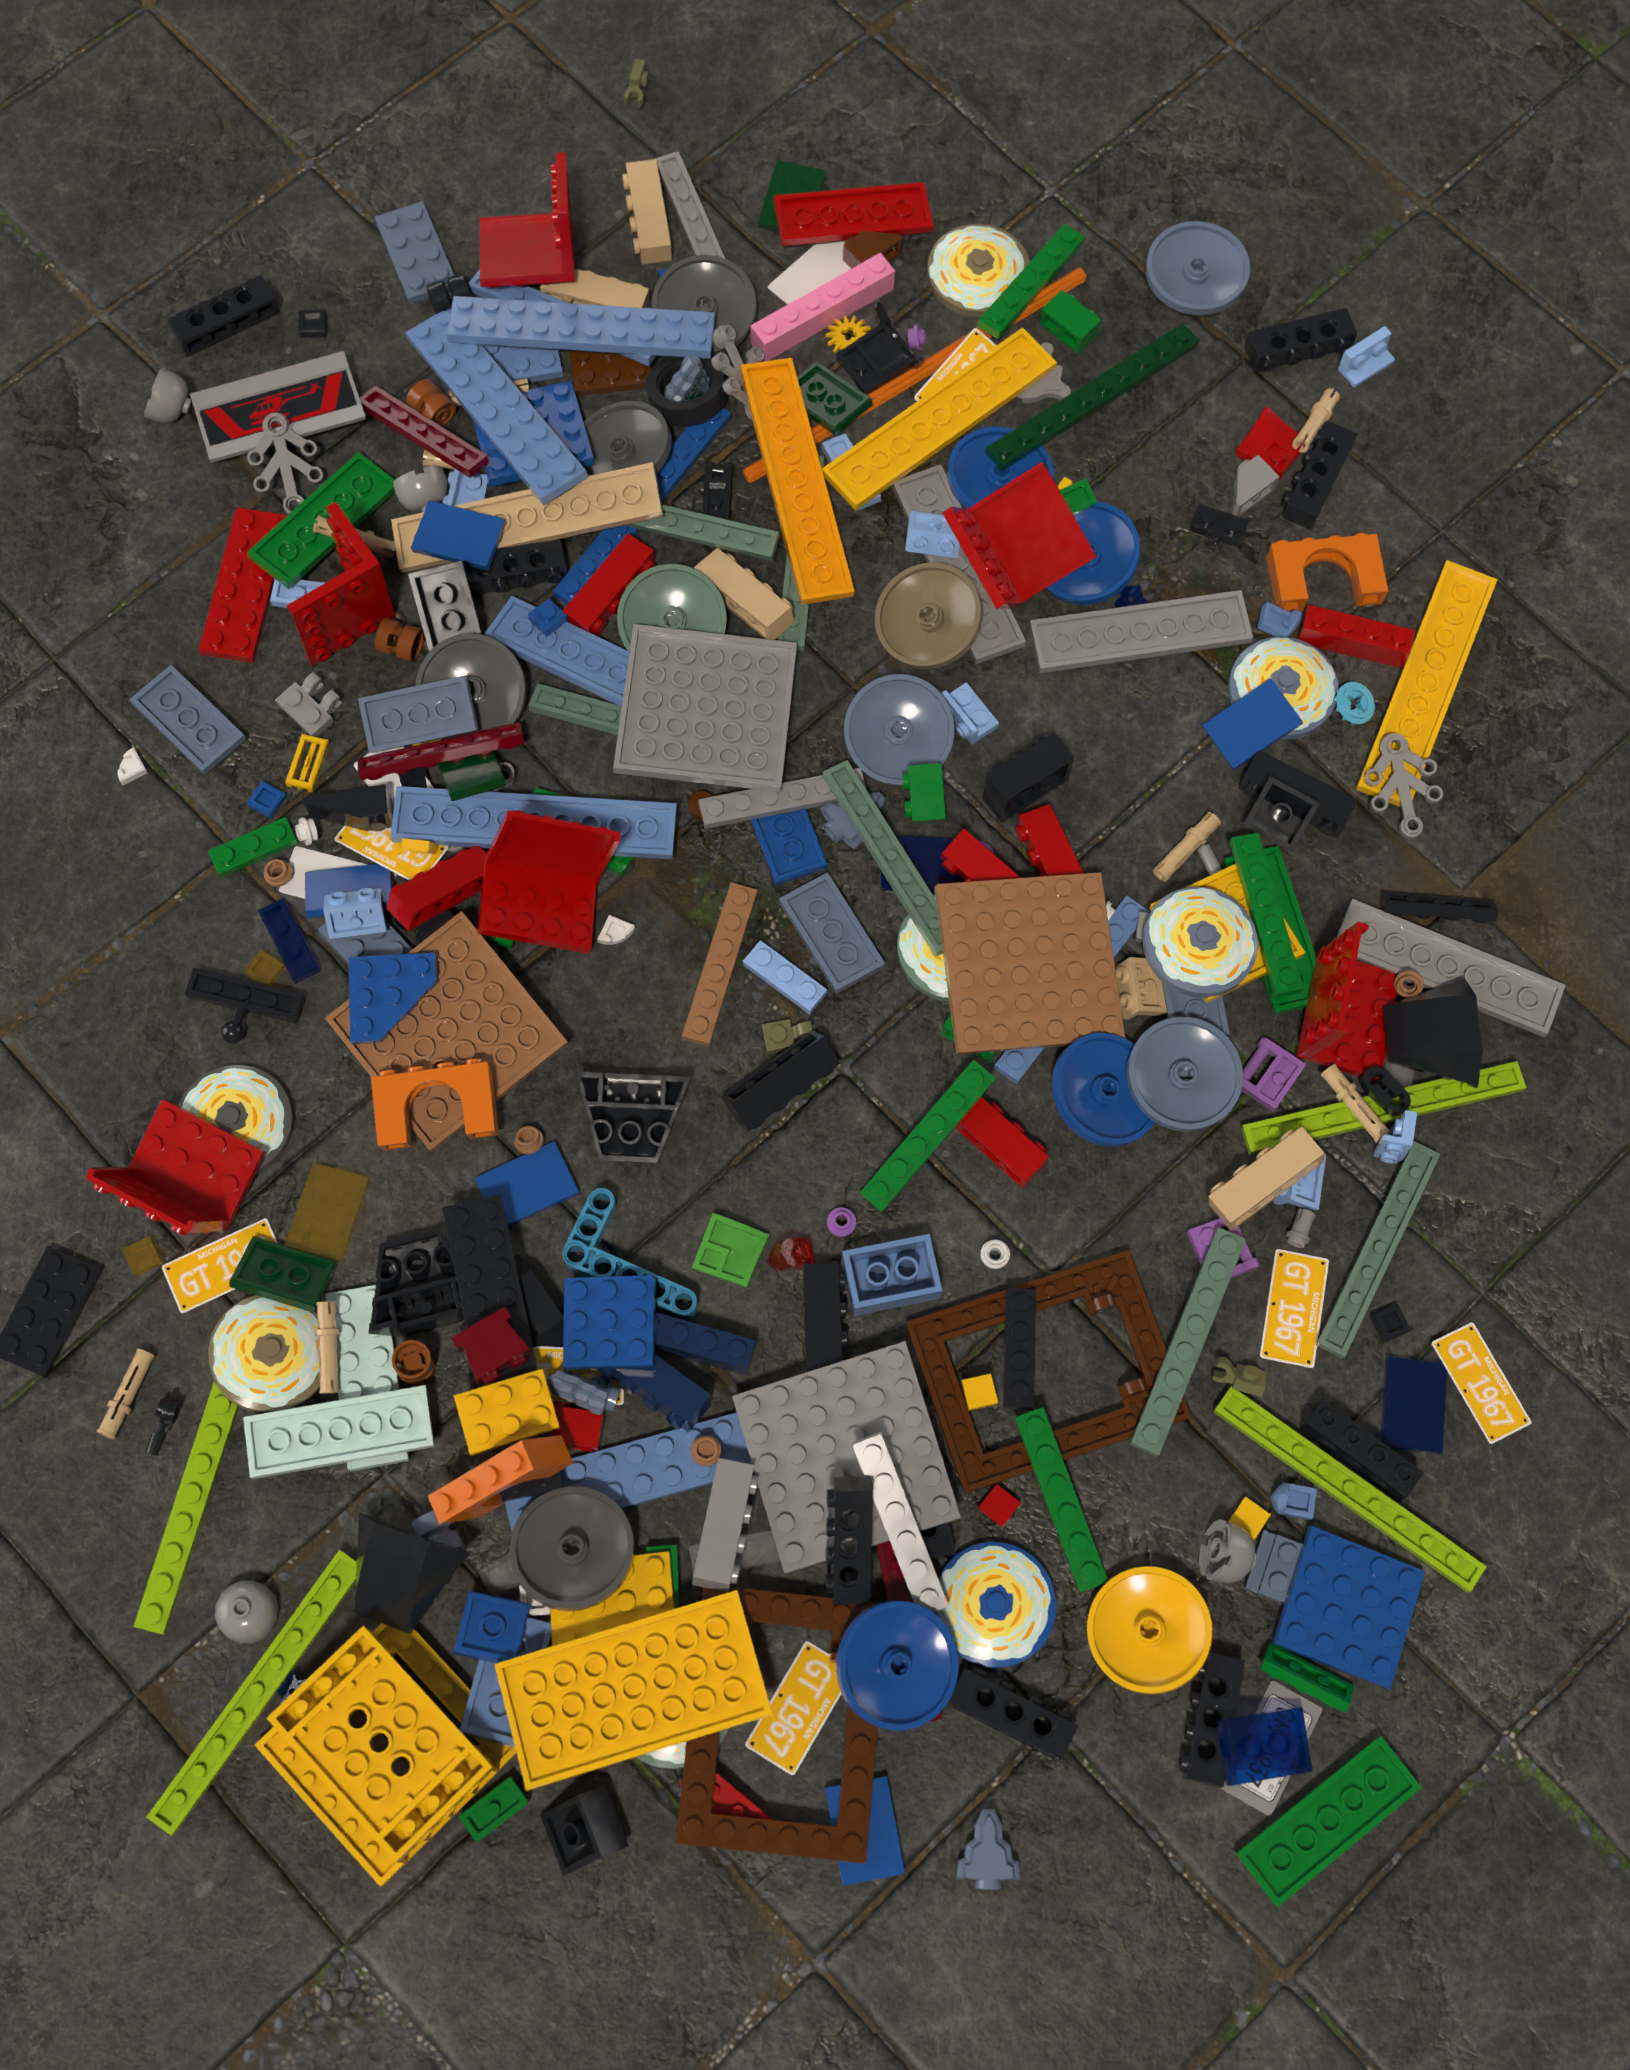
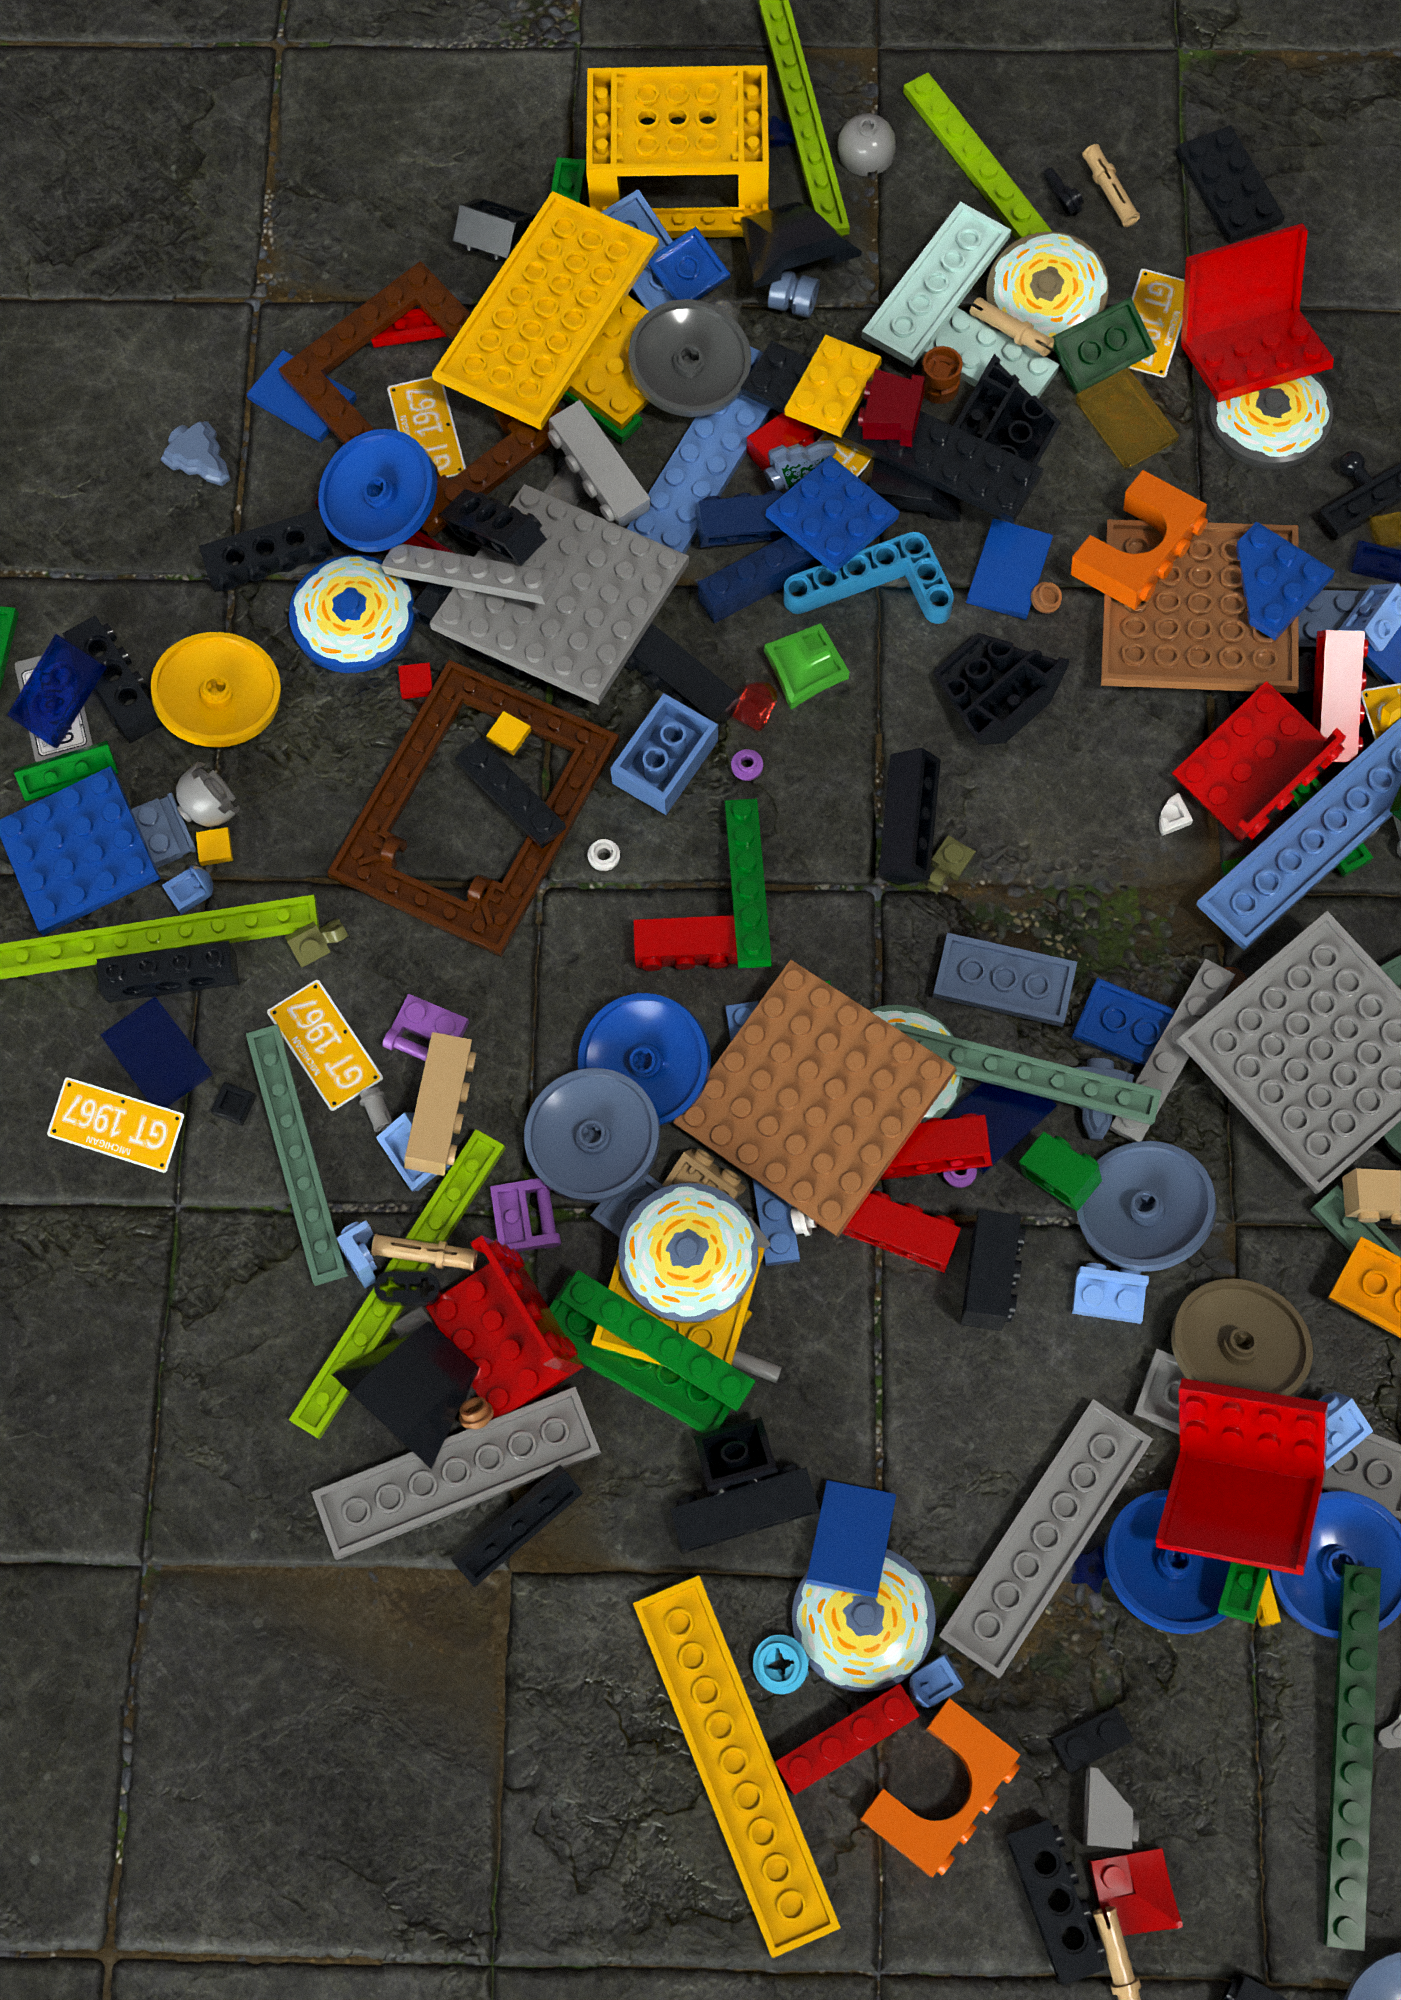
camera: 140 degrees right, 0 degrees up
(478, 1490) = (784, 330): orange arch -> none
(706, 1450) = (667, 507): medium nougat plate -> none
(719, 964) = (1064, 871): medium nougat plate -> none
(785, 977) = (1001, 910): light blue plate -> none
(1061, 1500) = (373, 720): green plate -> none
(1187, 1342) = (383, 924): sand green plate -> none
(1194, 838) = (793, 1362): tan pin -> none
(1402, 781) = (662, 1617): light grey plant -> none

